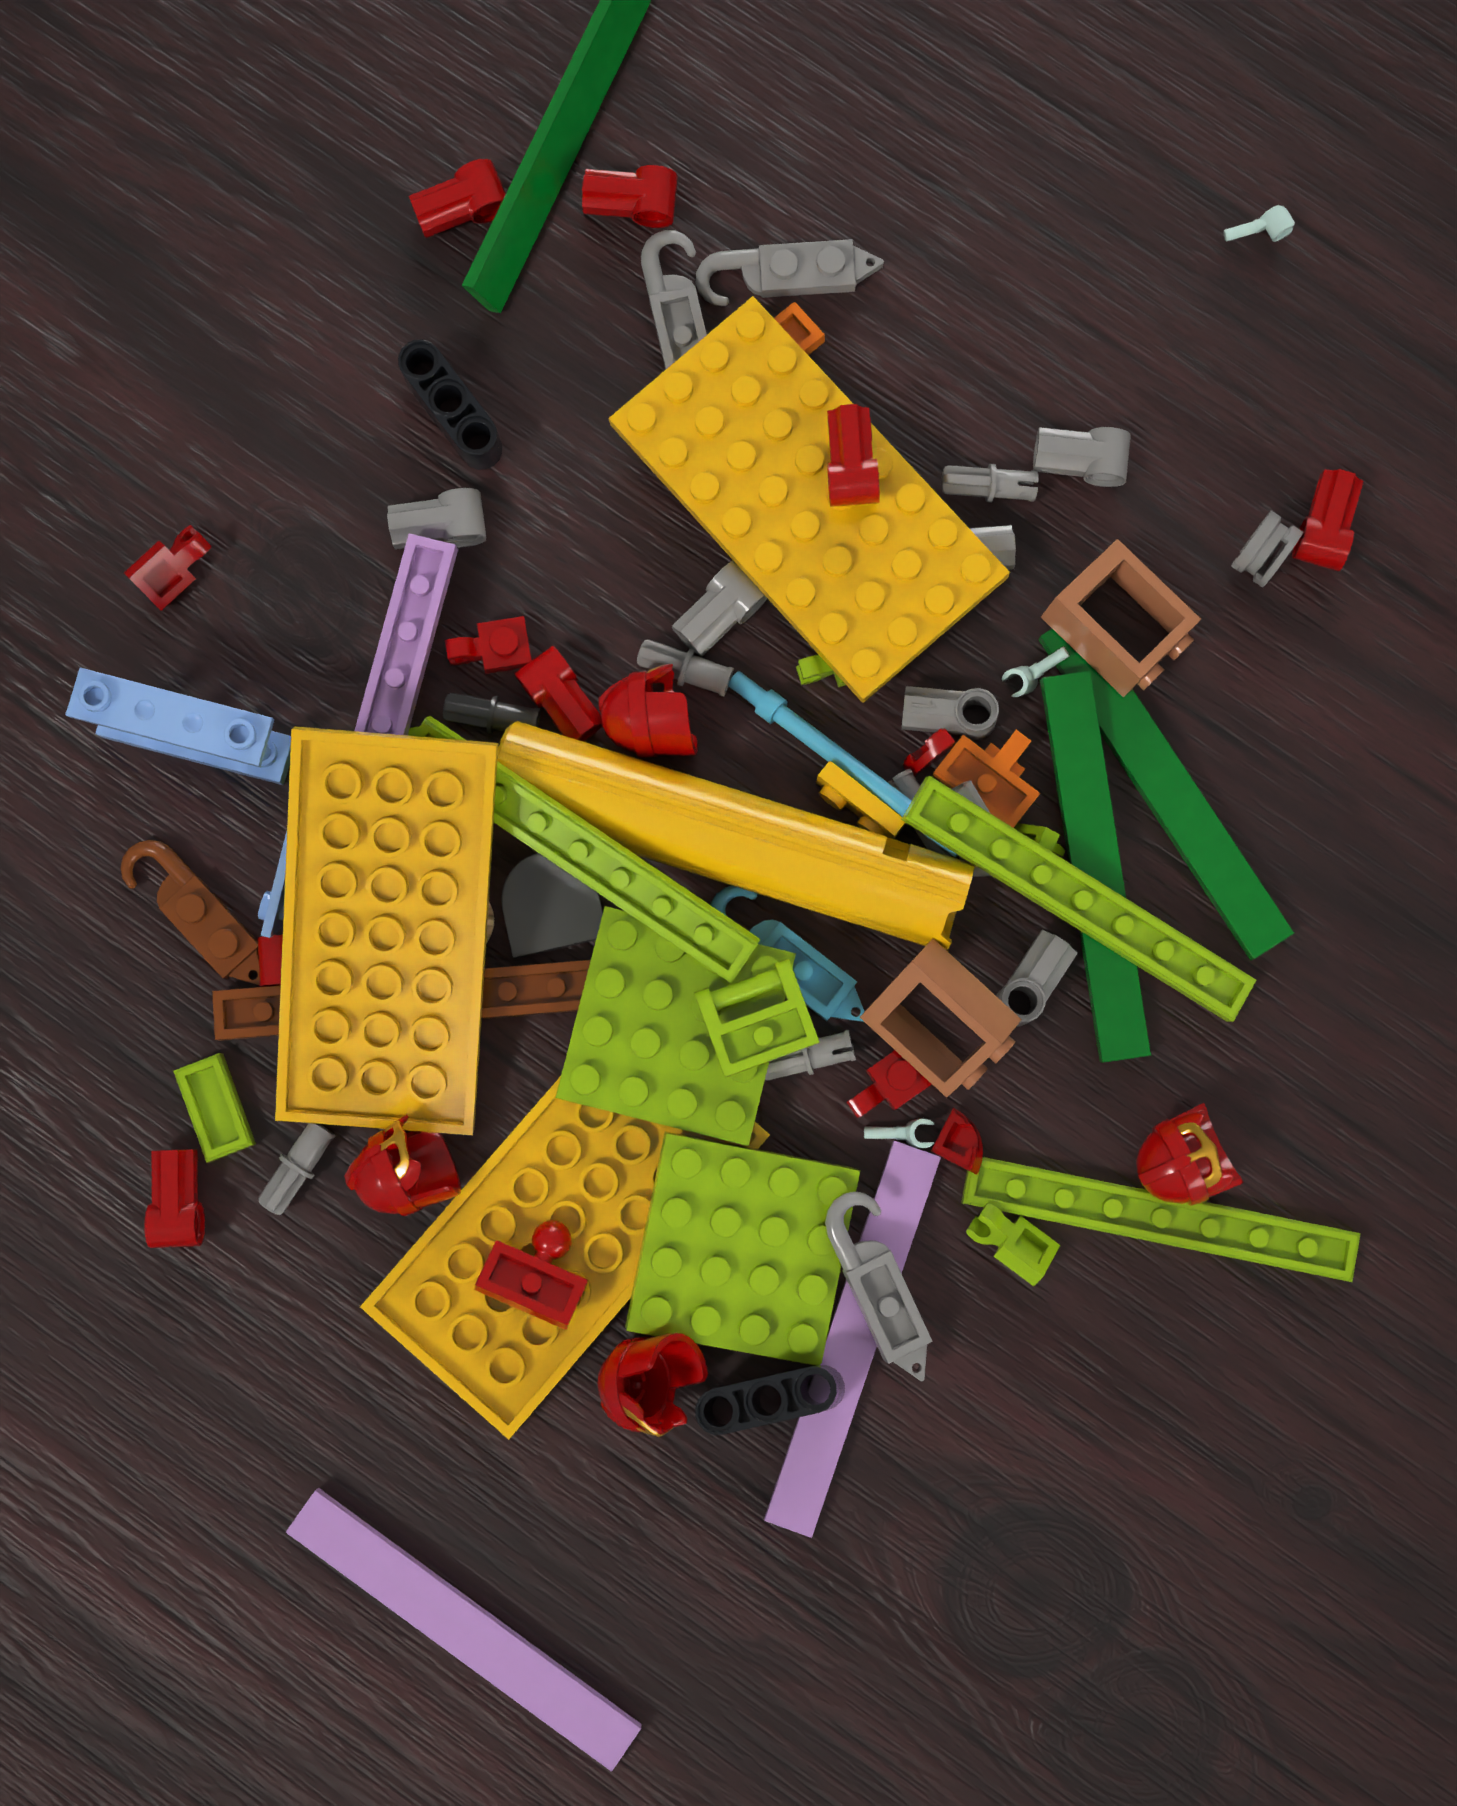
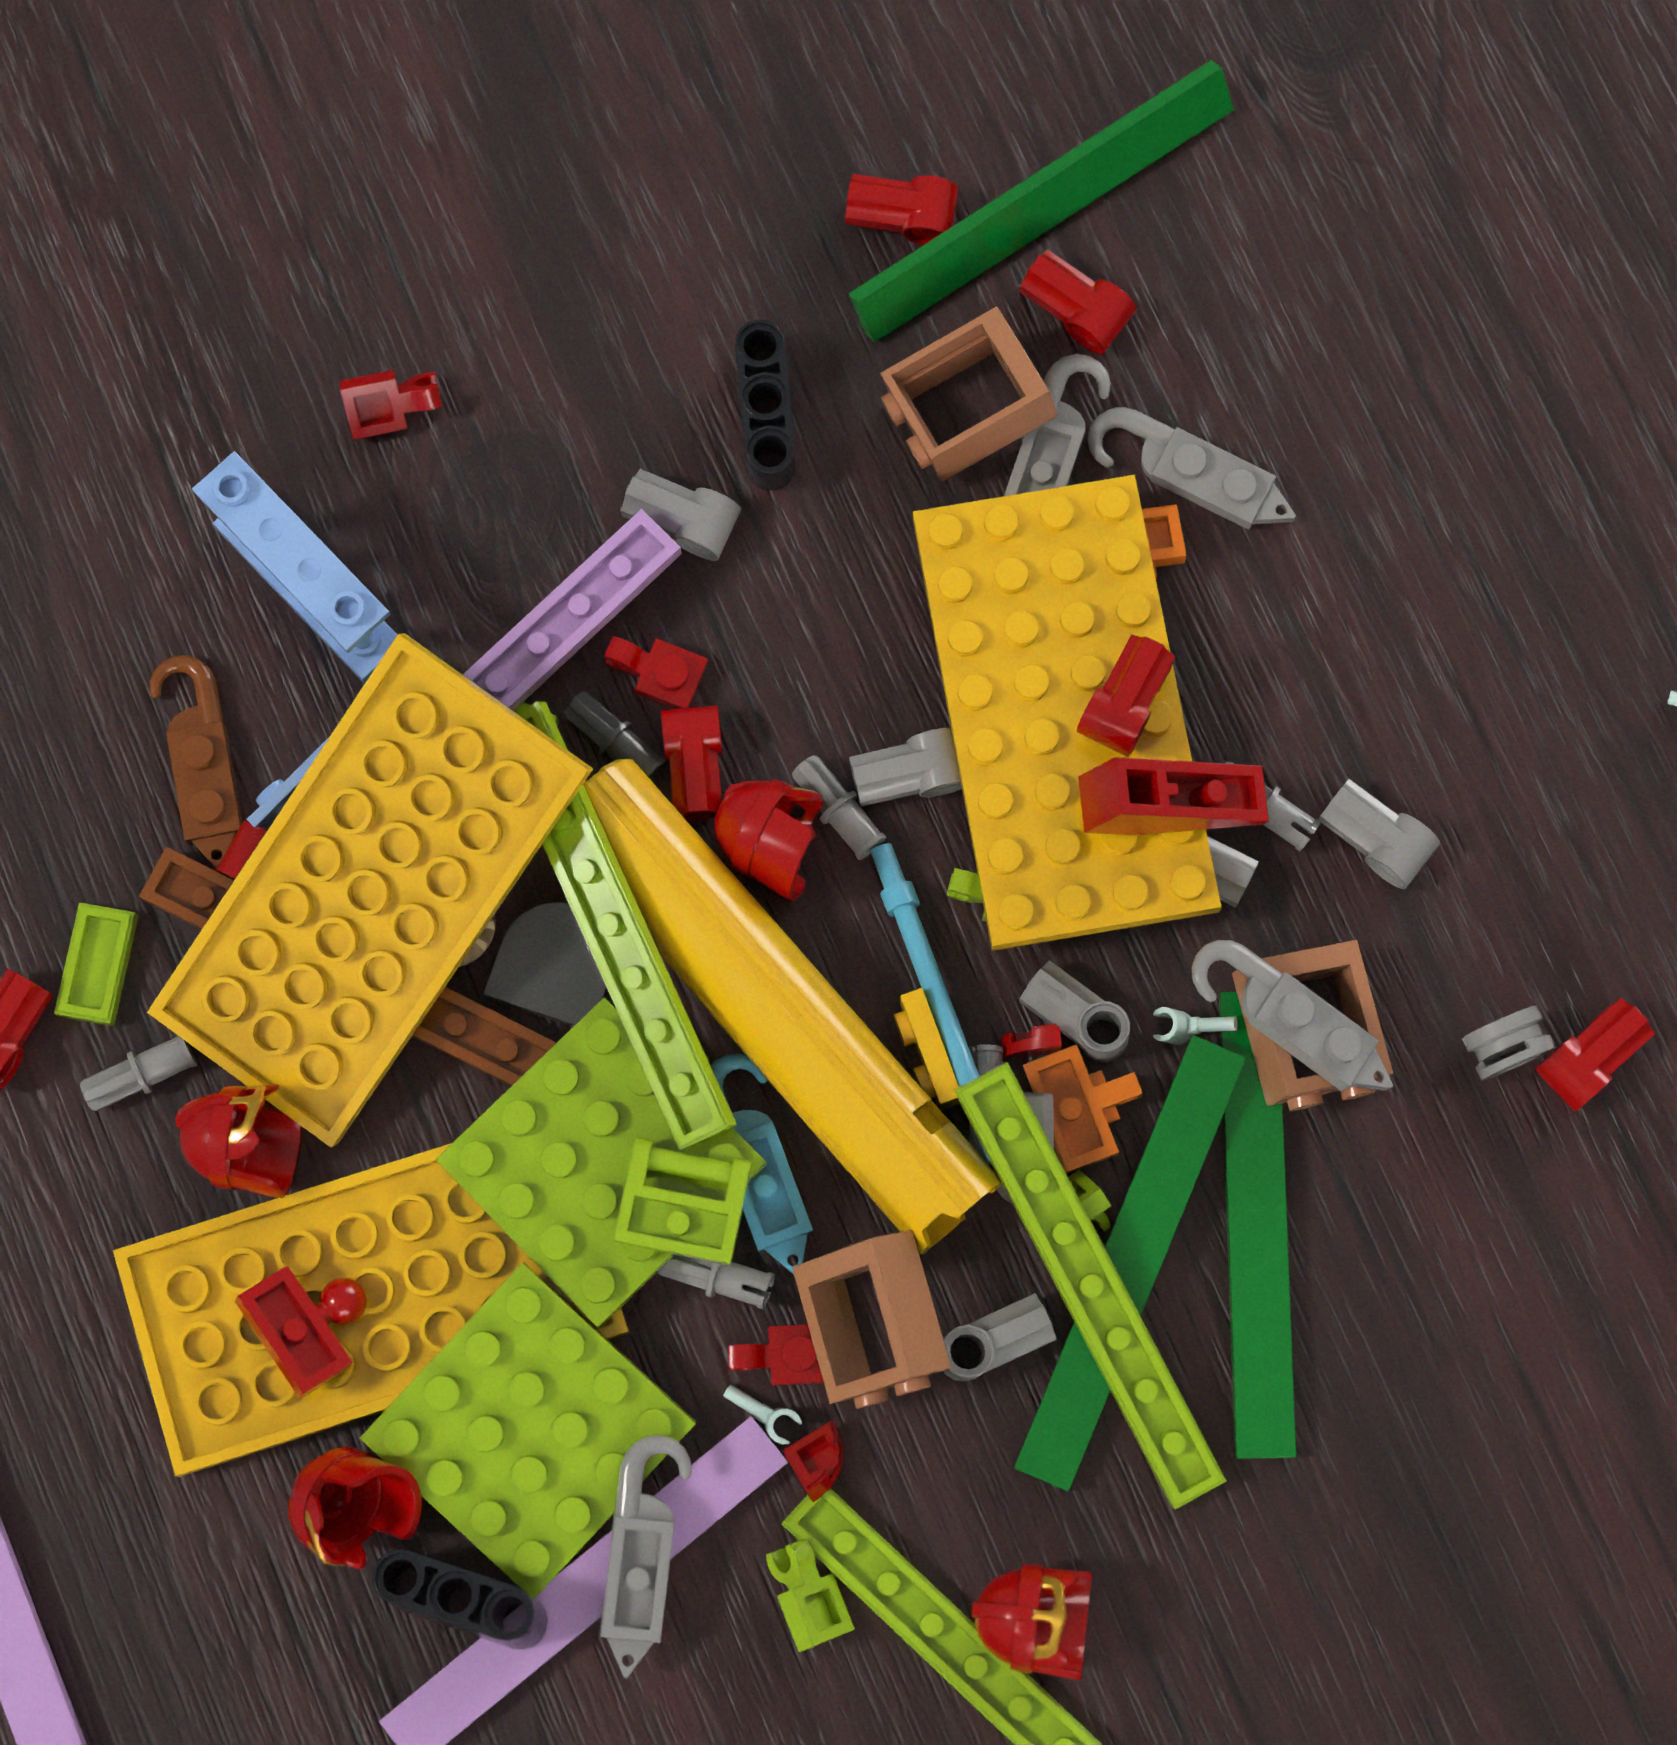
camera: 30 degrees right, 5 degrees down
(580, 258) = (949, 357): none -> nougat window
(927, 512) = (1170, 796): none -> red slope
(1114, 619) = (1297, 1019): none -> light grey plate

